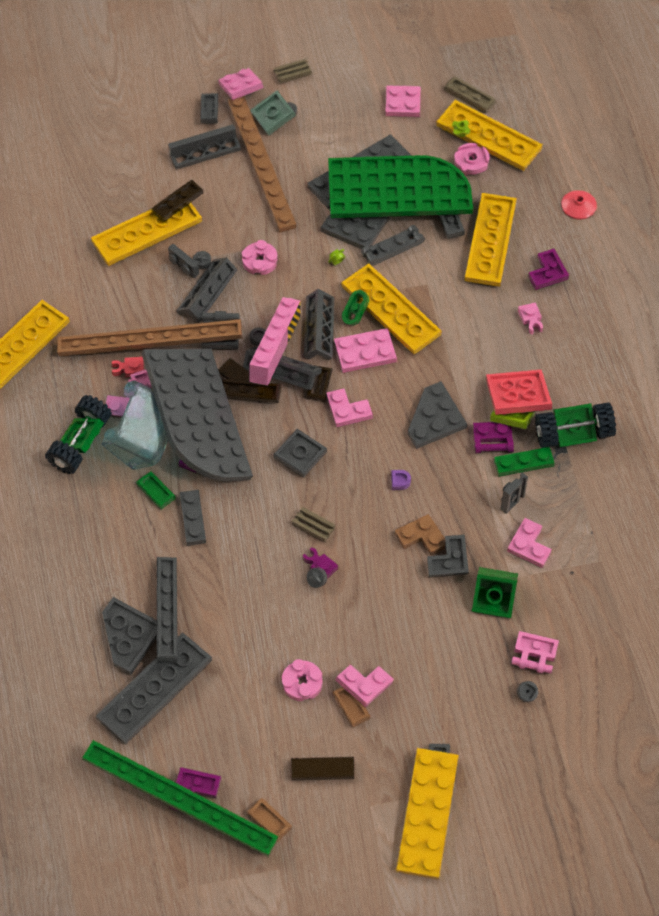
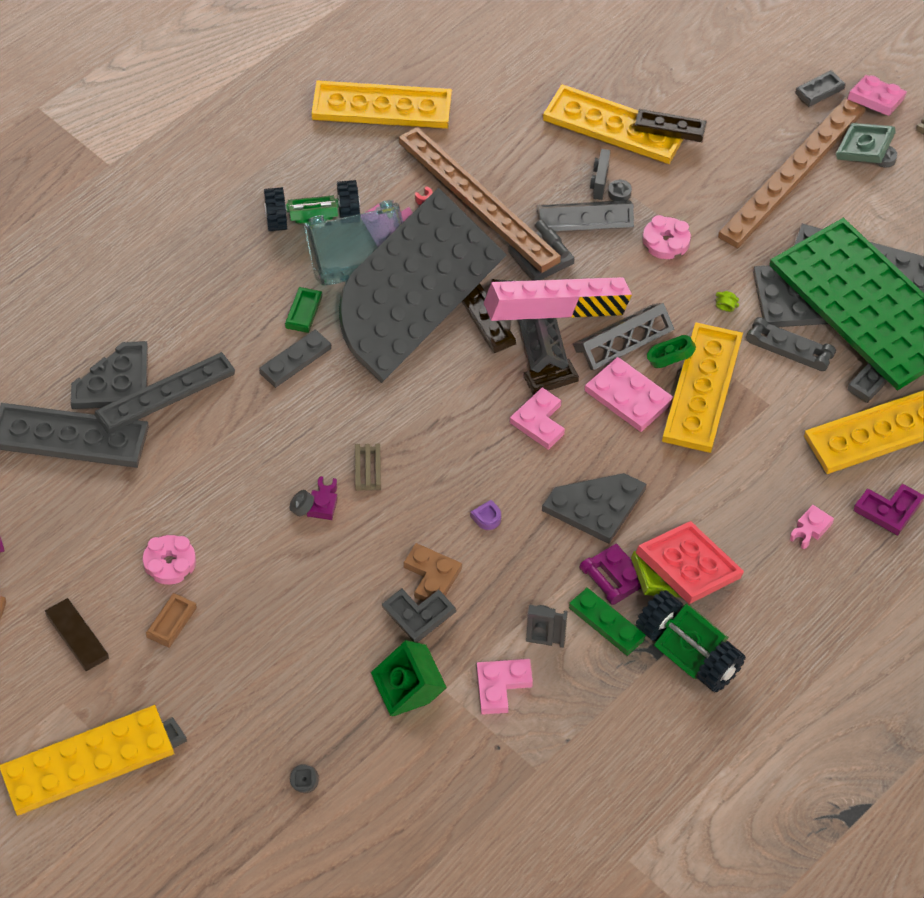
camera: 55 degrees right, 5 degrees down
(202, 144) = (769, 108): dark grey fence -> none
(300, 453) = (446, 405): dark grey plate -> none
(363, 688) = (197, 621): bright pink plate -> none
(535, 646) = (368, 758): bright pink plate -> none

